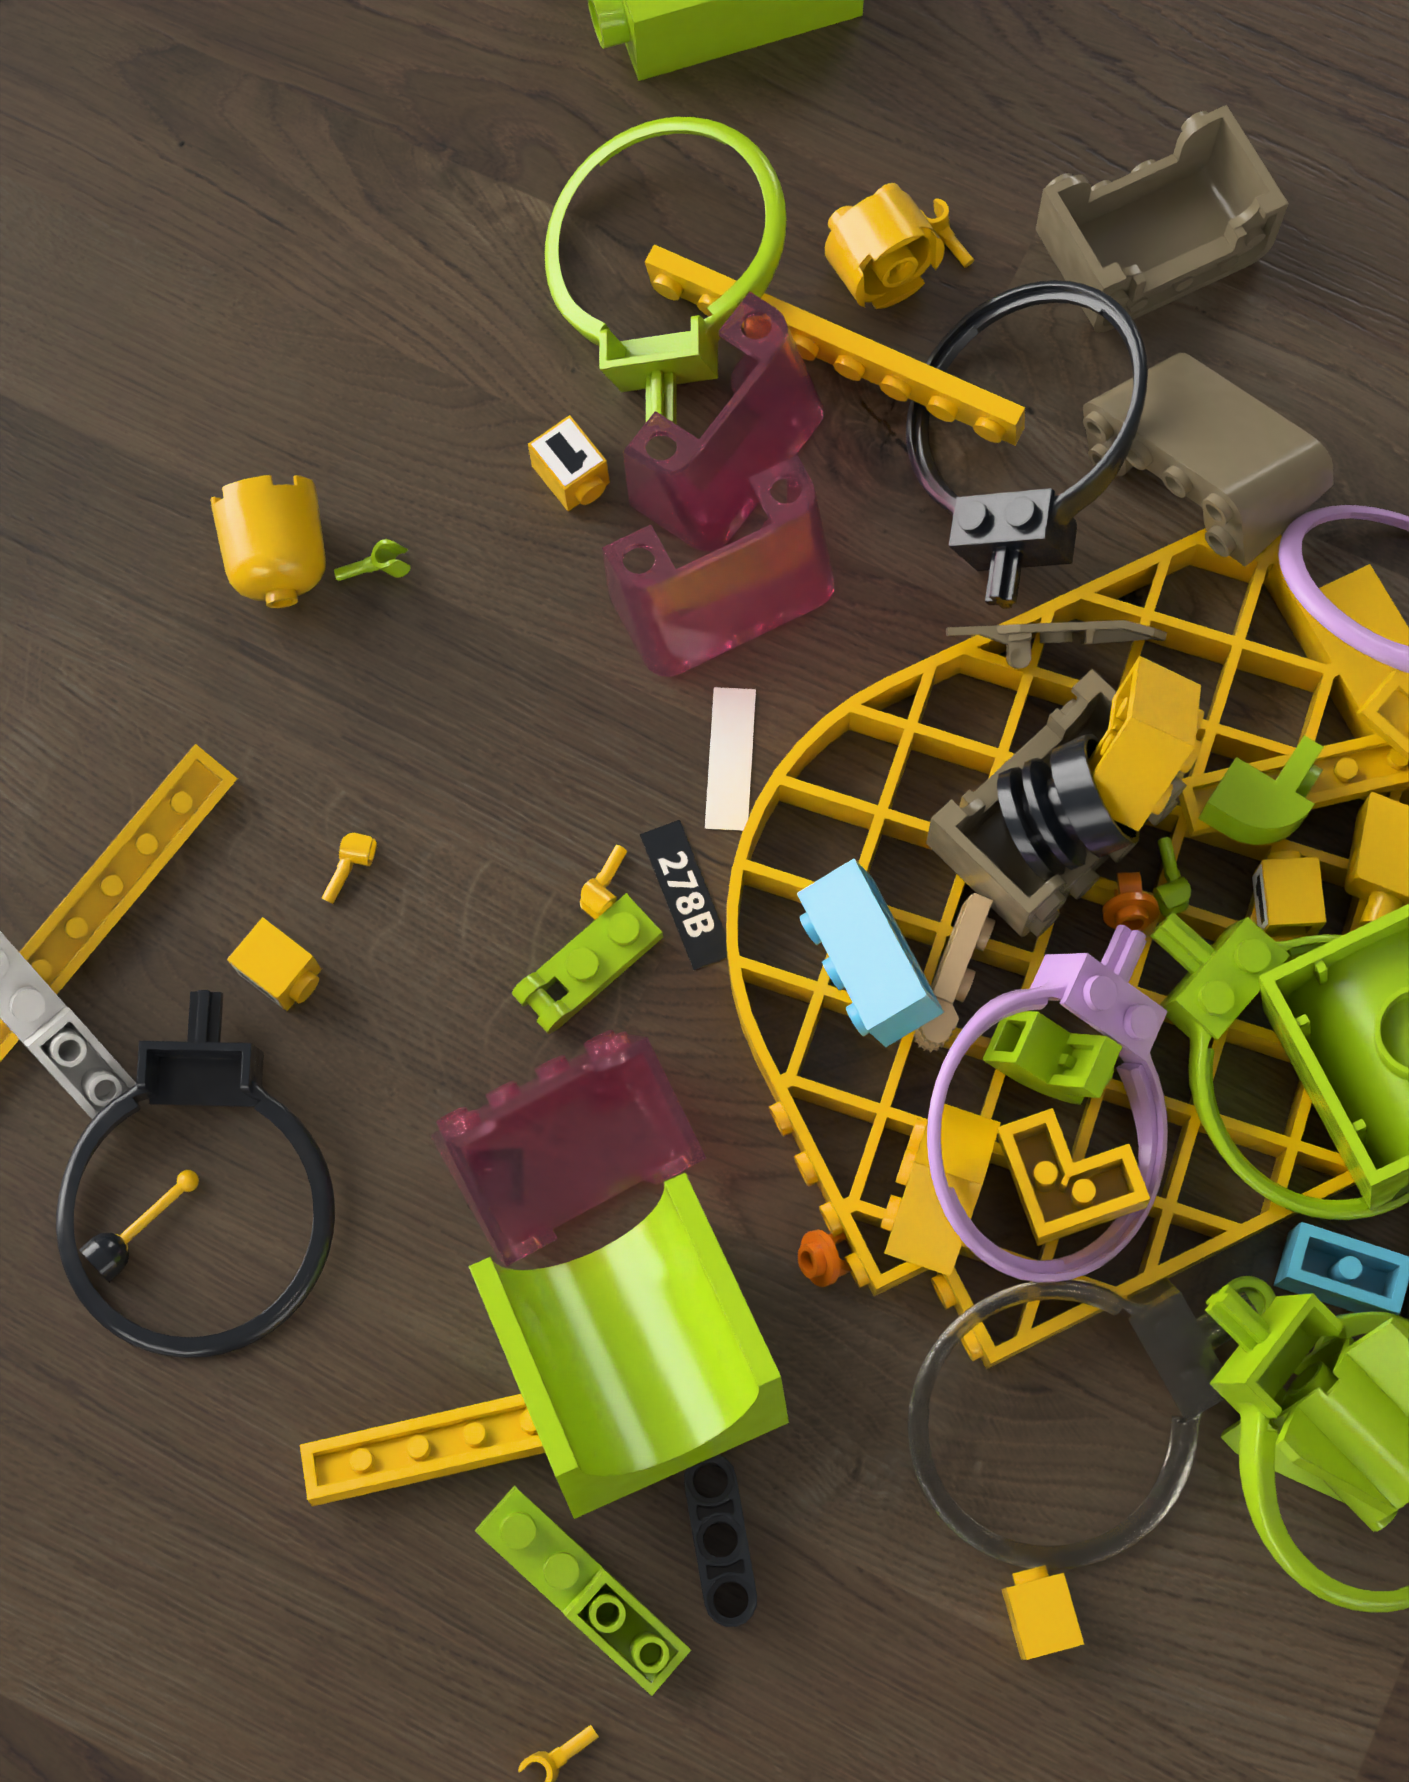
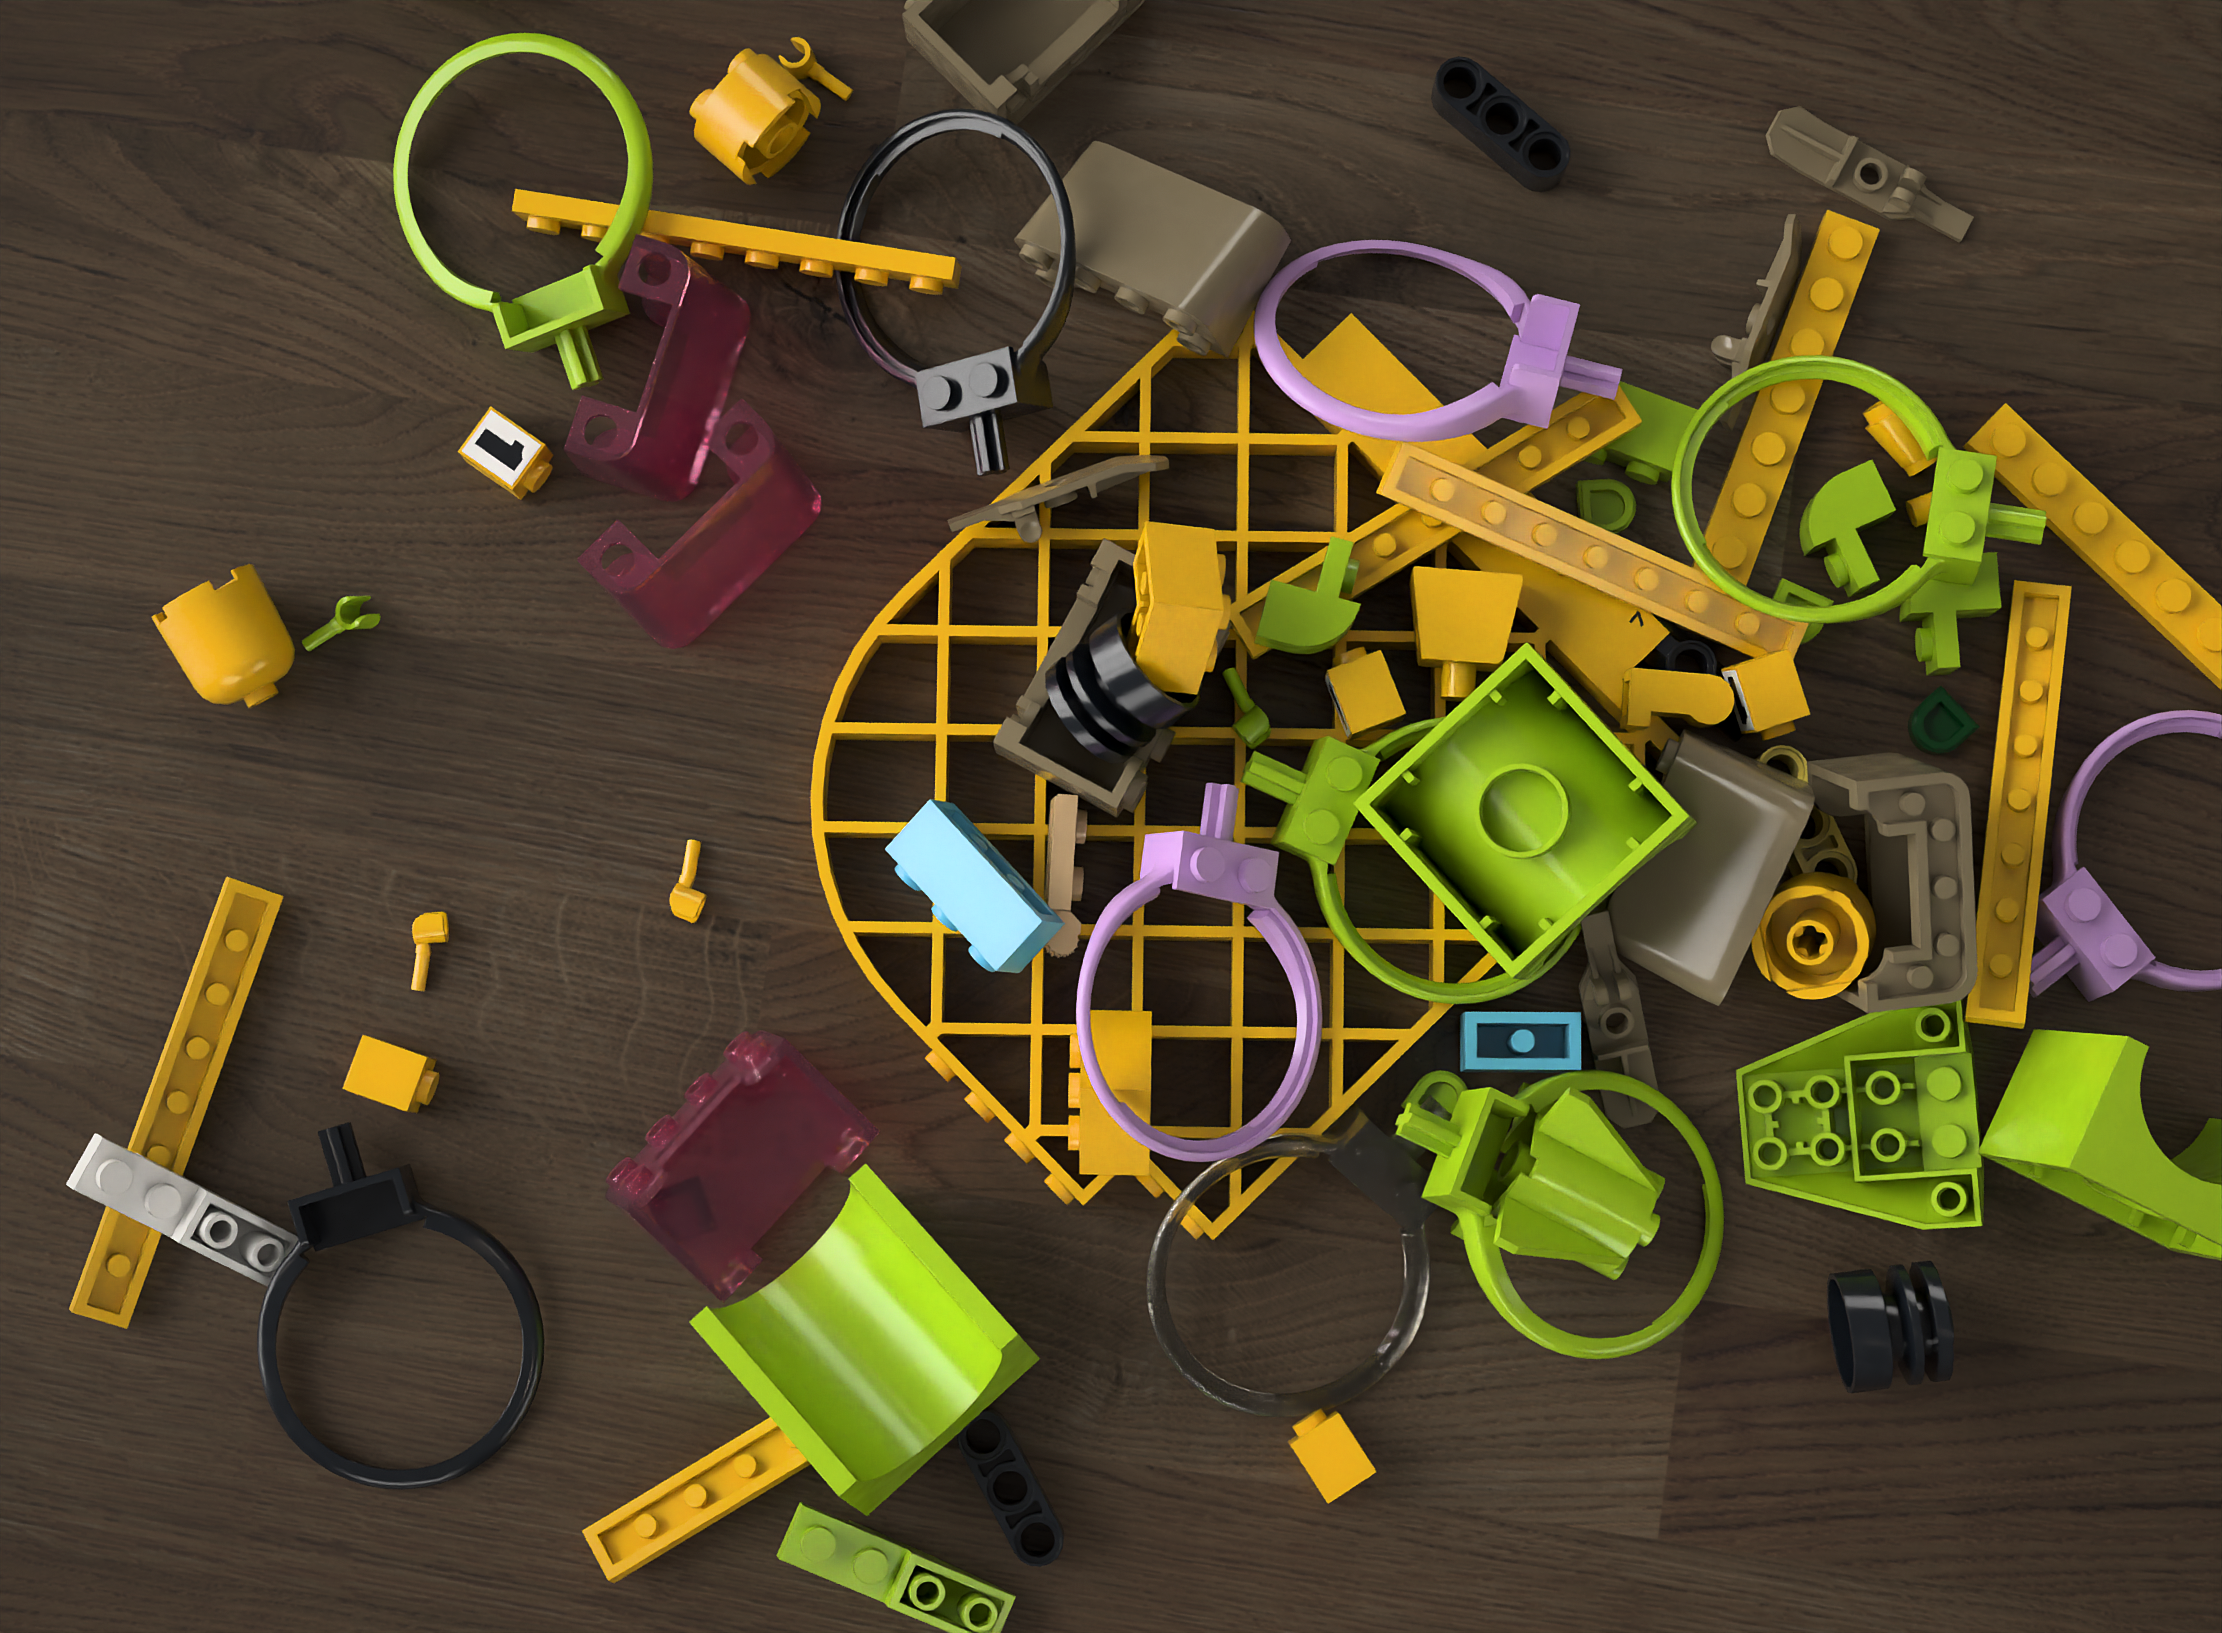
camera: 20 degrees left, 10 degrees up
(110, 1251) = (331, 1408): hinge -> none
(589, 963) = (701, 969): lime plate -> none
(686, 894) = (773, 865): black sticker -> none
(730, 758) = (773, 711): white sticker -> none
(820, 1258) = (1020, 1190): orange plate -> none
(1051, 1058) = (1184, 932): lime brick -> none
(1063, 1194) = (1225, 1062): yellow brick -> none
(1130, 905) = (1214, 756): orange plate -> none

